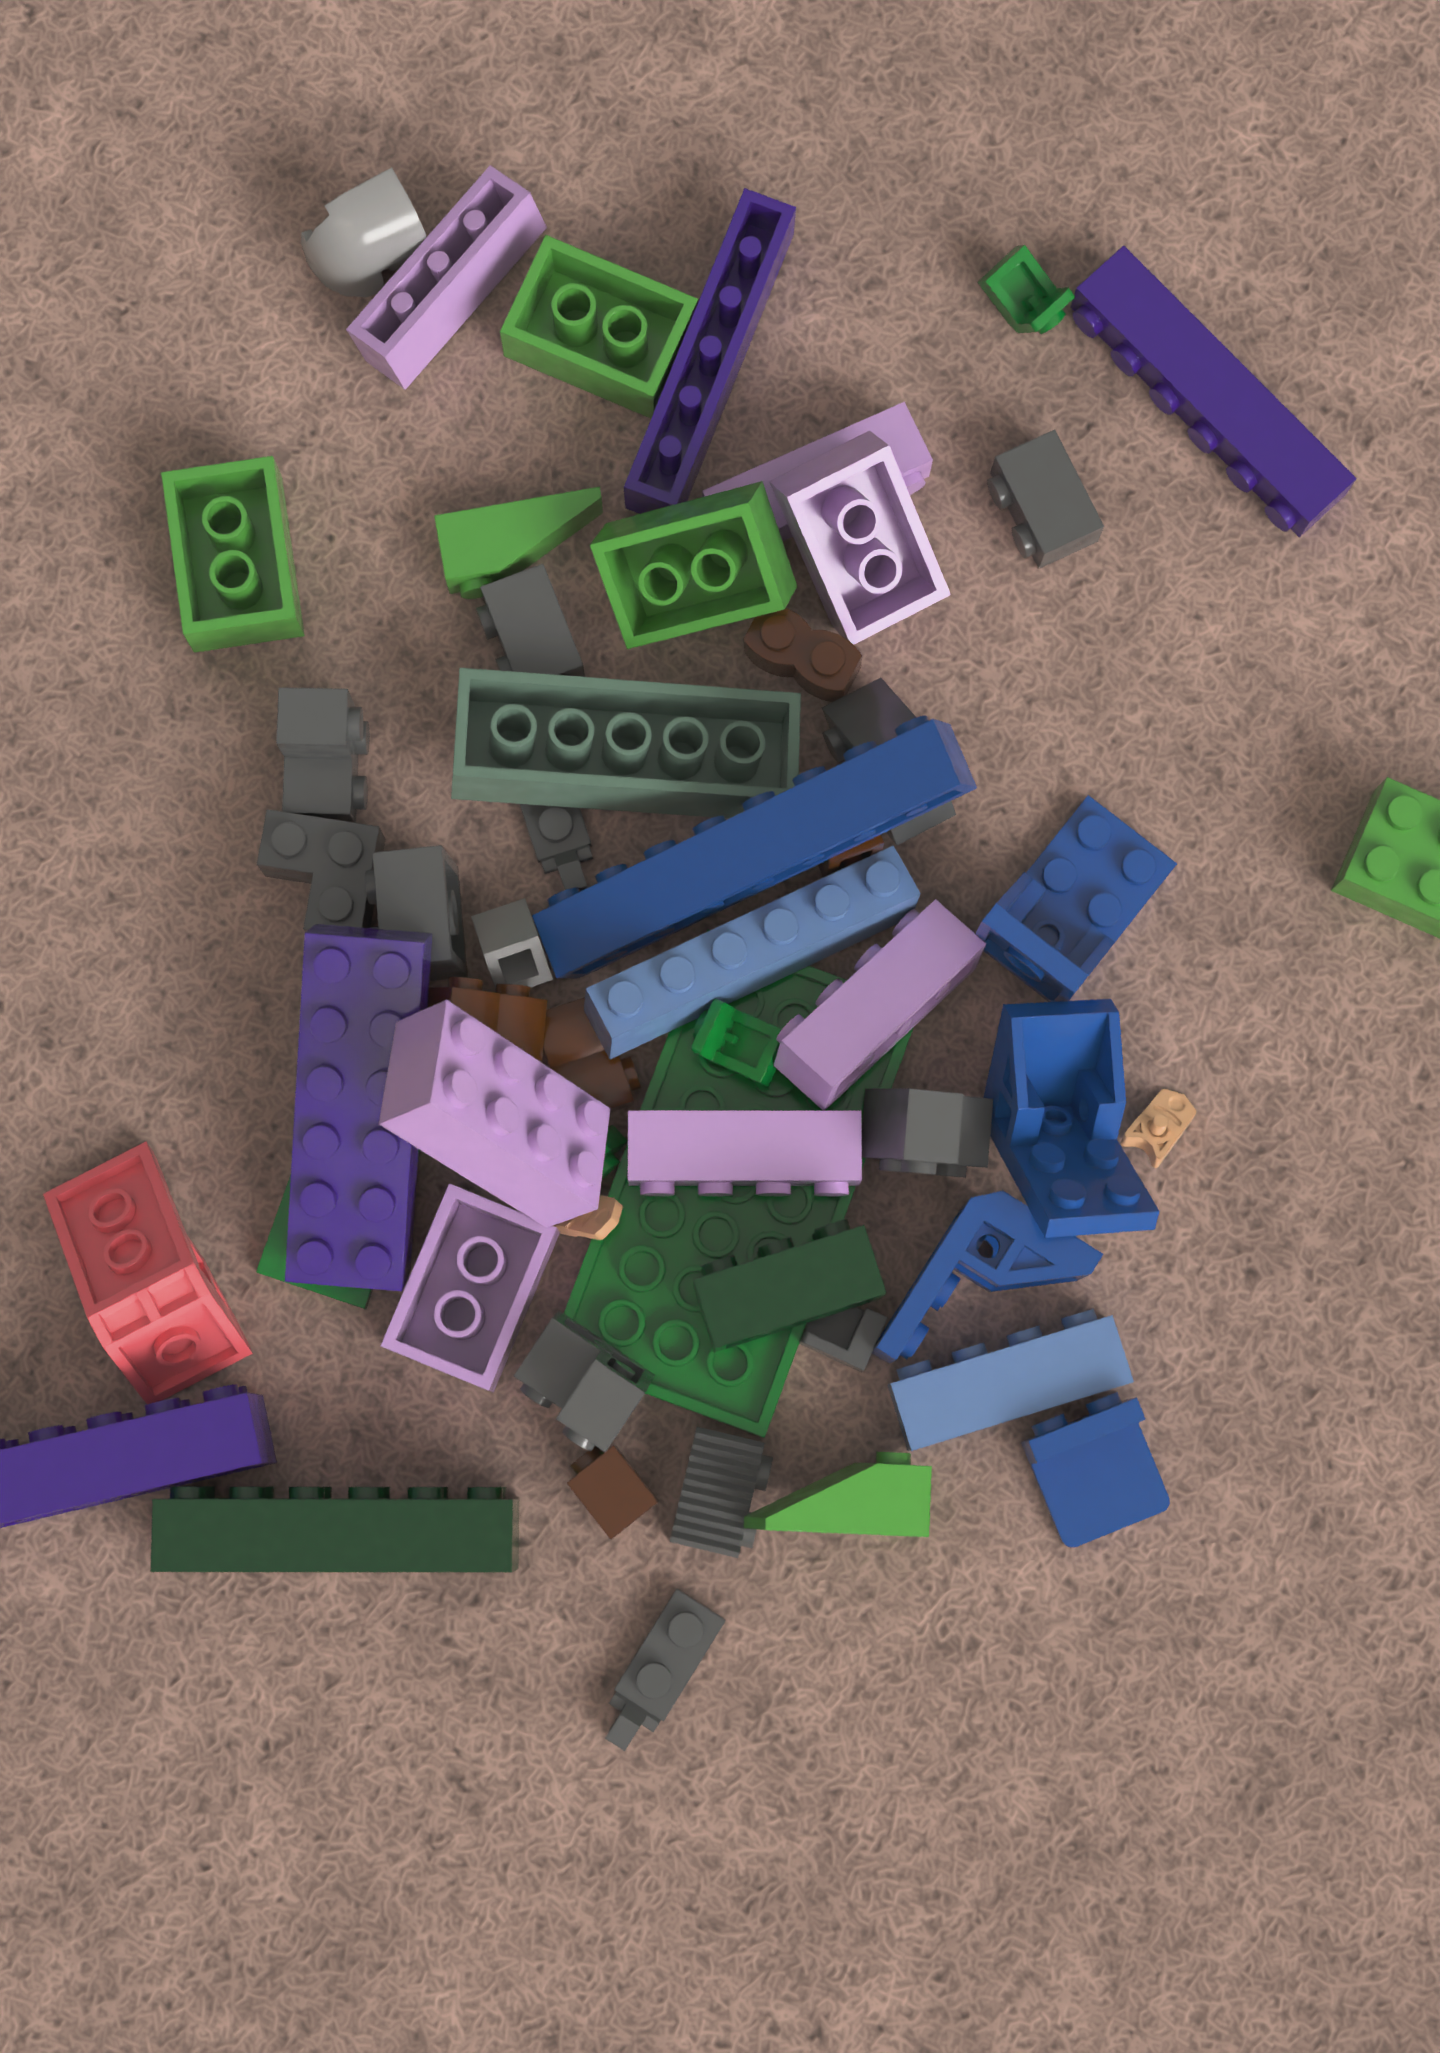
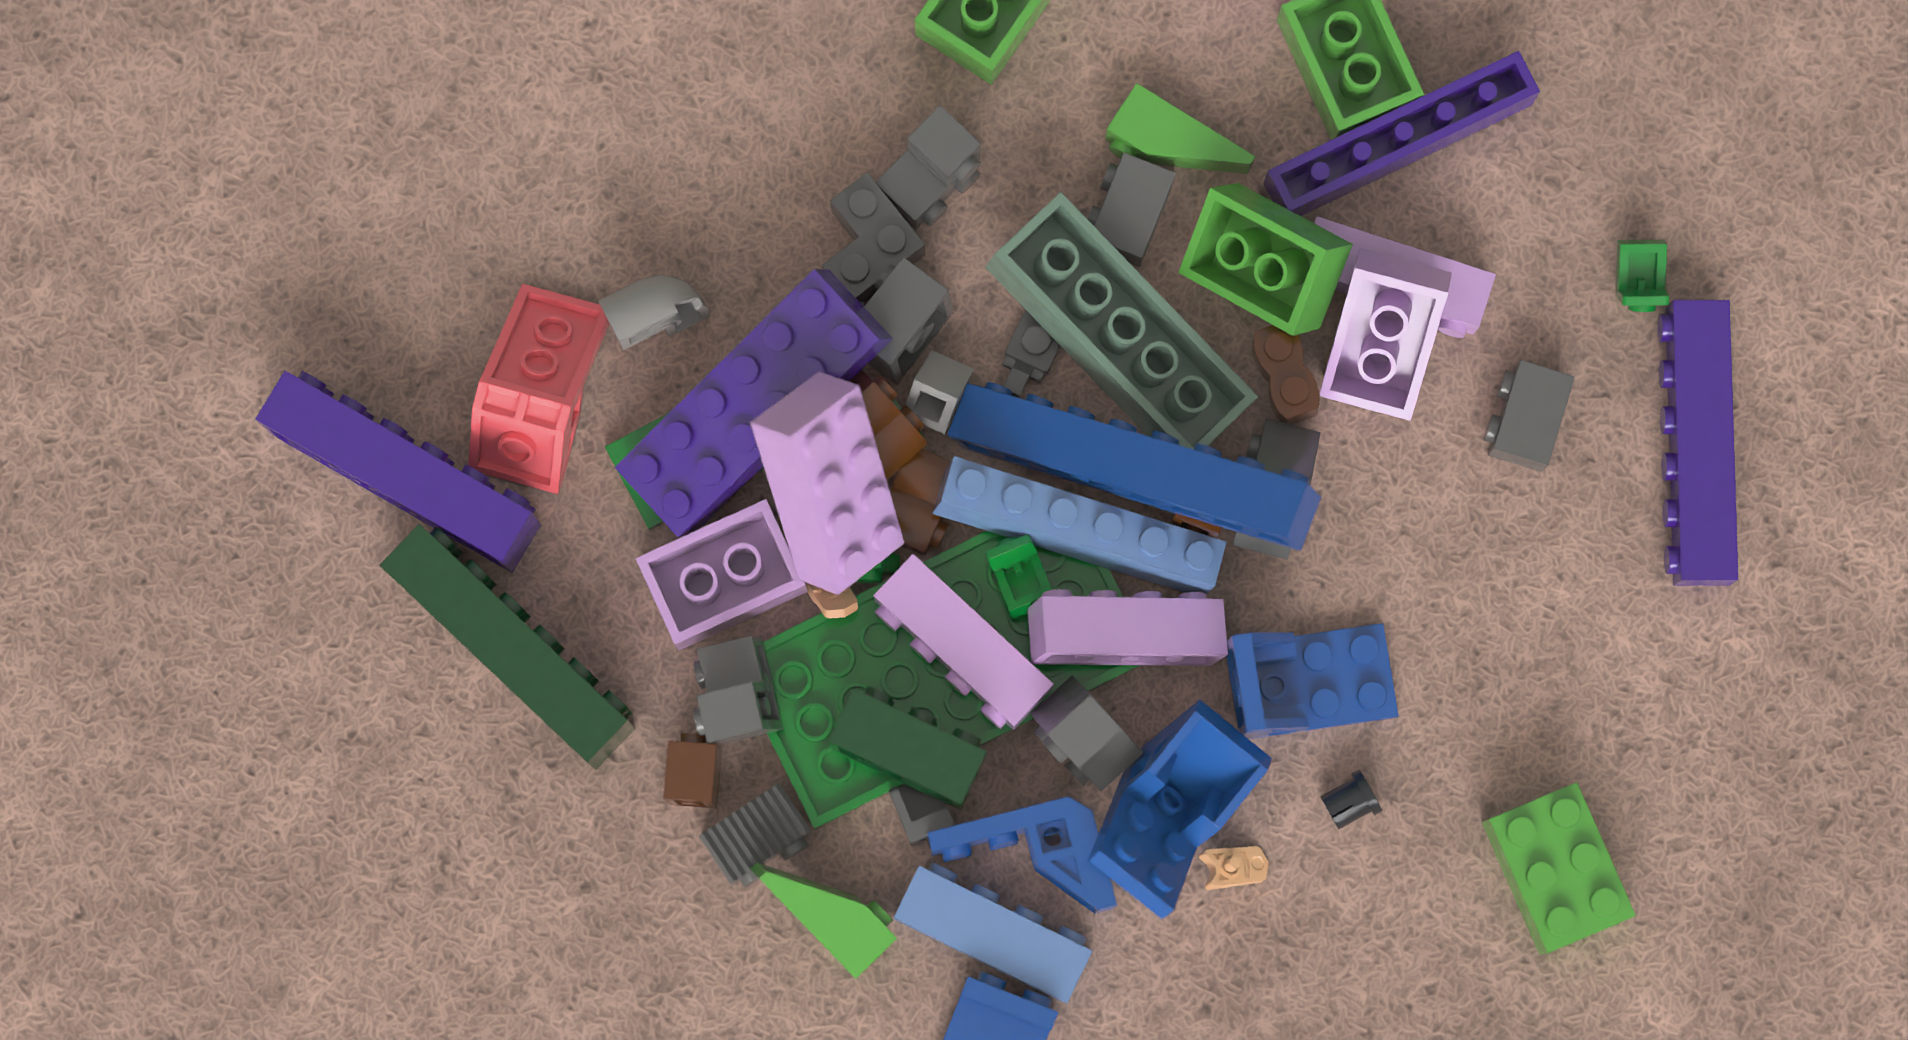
camera: 45 degrees right, 0 degrees up
(183, 1106) = (651, 307): none -> light grey brick
(662, 1666) = (626, 908): dark grey hinge -> none
(1206, 974) = (1351, 801): none -> black bush

